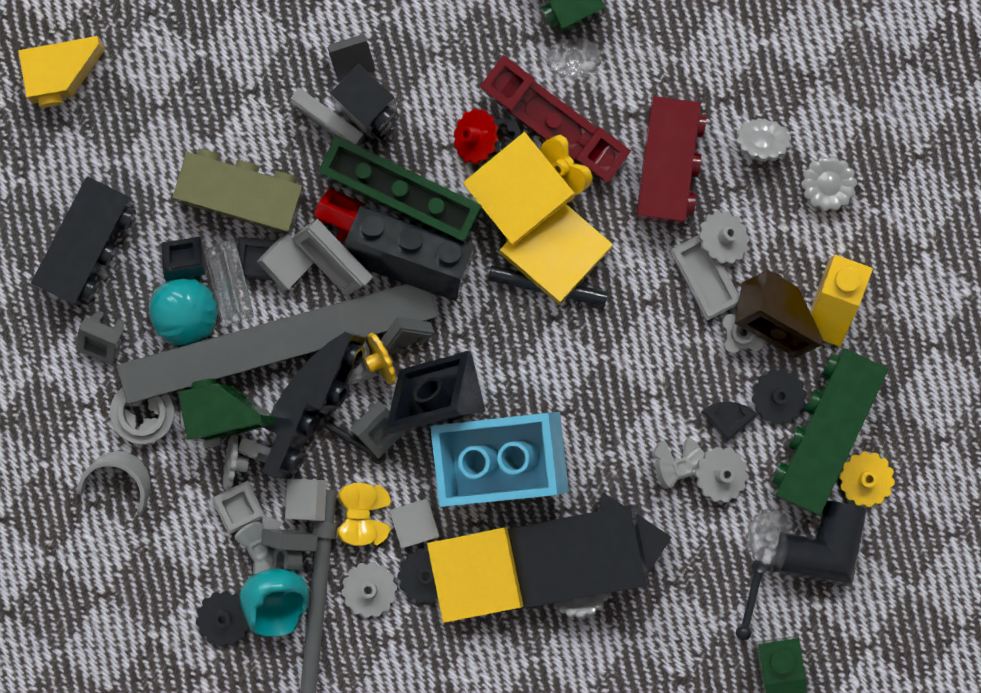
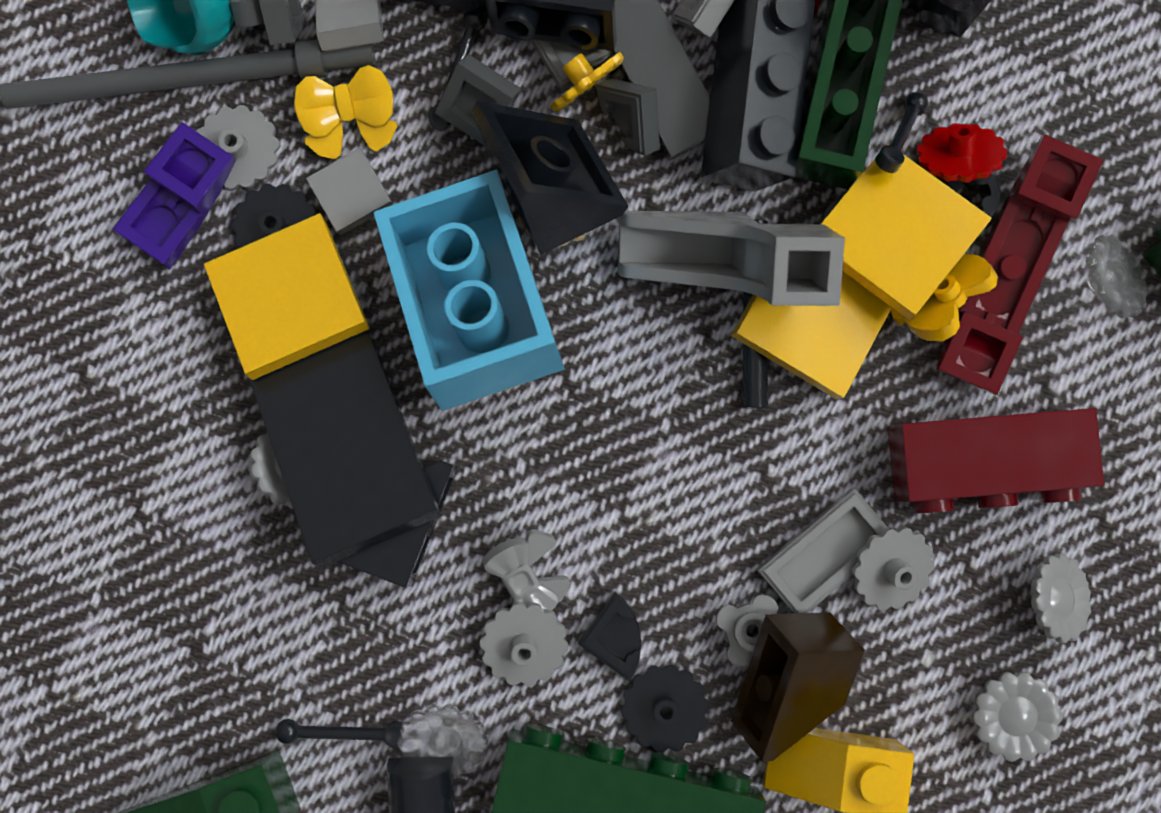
camera: 75 degrees right, 0 degrees up
(394, 633) = (178, 196): none -> dark purple slope
(474, 185) = (890, 156): none -> black hinge
(507, 299) = (735, 253): none -> light grey arch

